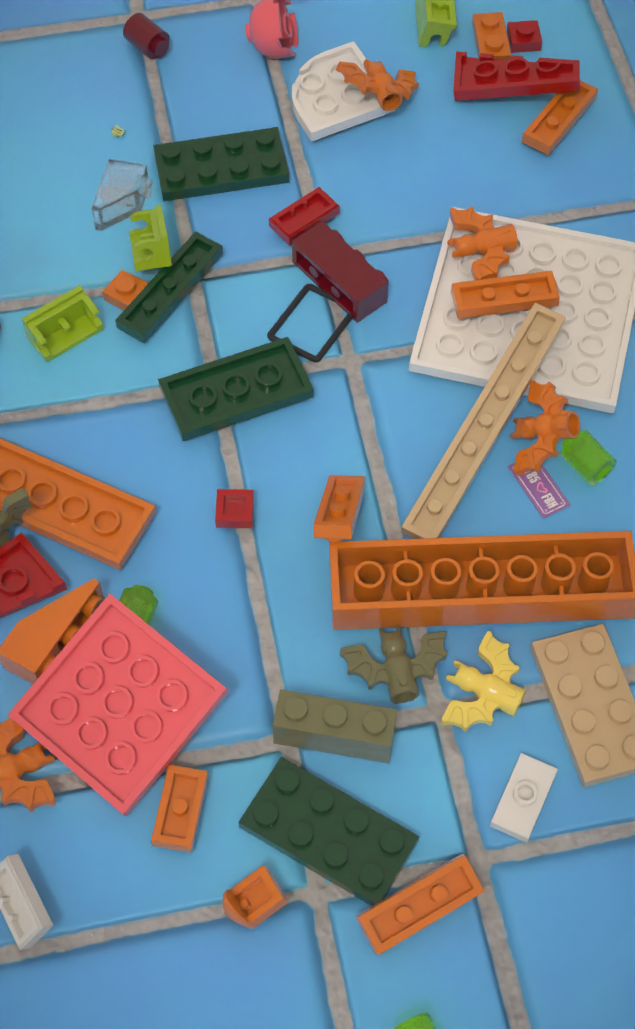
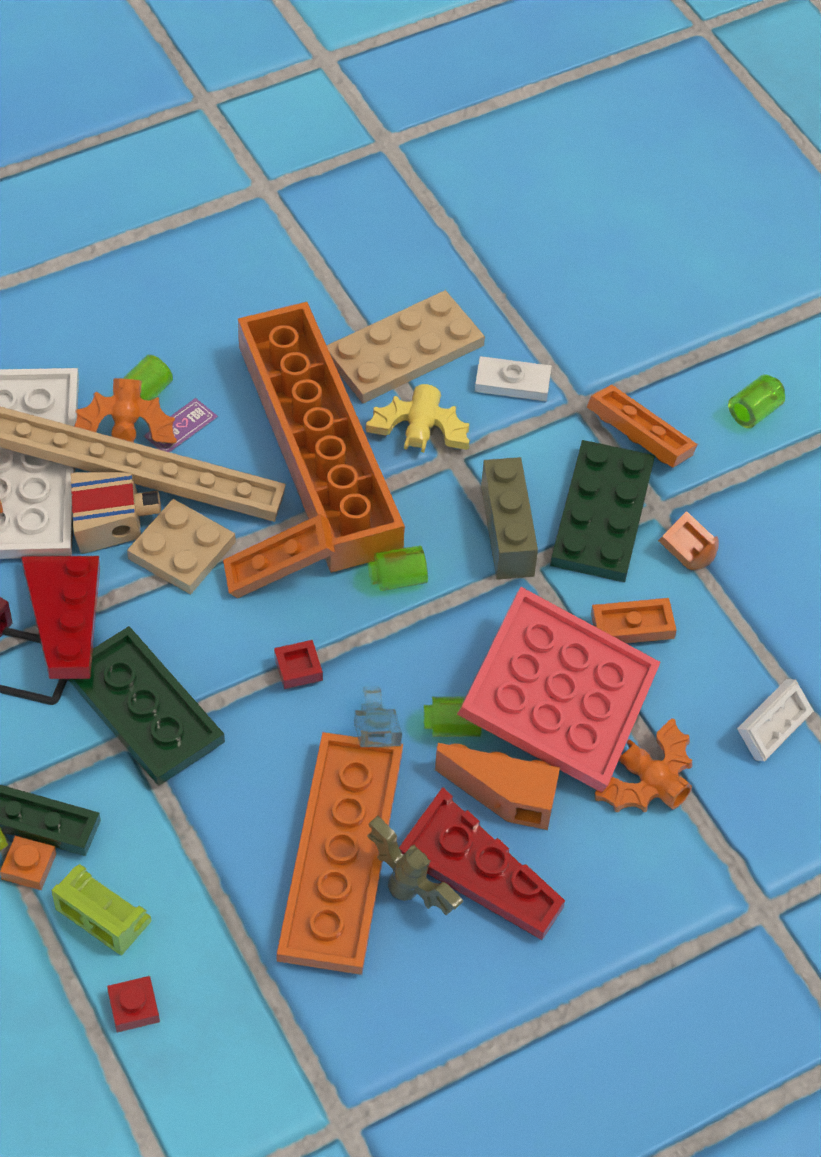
camera: 110 degrees left, 5 degrees down
(144, 547) = (375, 724): none -> clear light blue plate
(309, 615) = (398, 568): none -> clear neon green brick
(350, 349) = (64, 610): none -> red wing
(395, 453) = (181, 546): none -> tan plate
(398, 668) = (426, 488): olive animal -> none
(444, 397) = (108, 509): none -> tan torso

